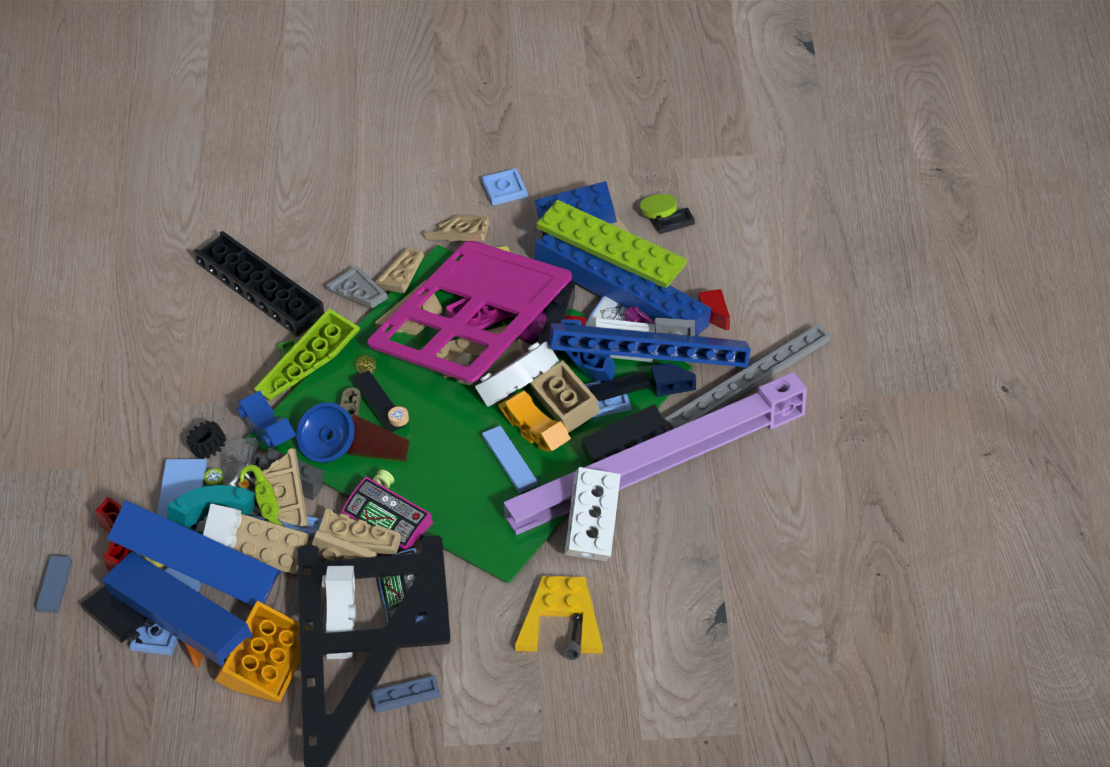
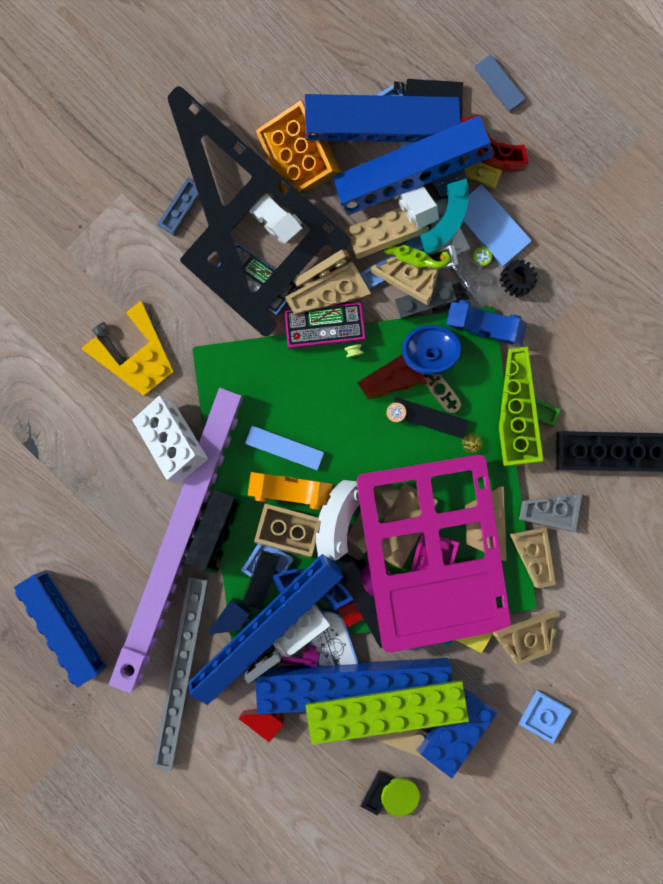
camera: 140 degrees right, 40 degrees up
(815, 462) = (60, 628): none -> blue brick

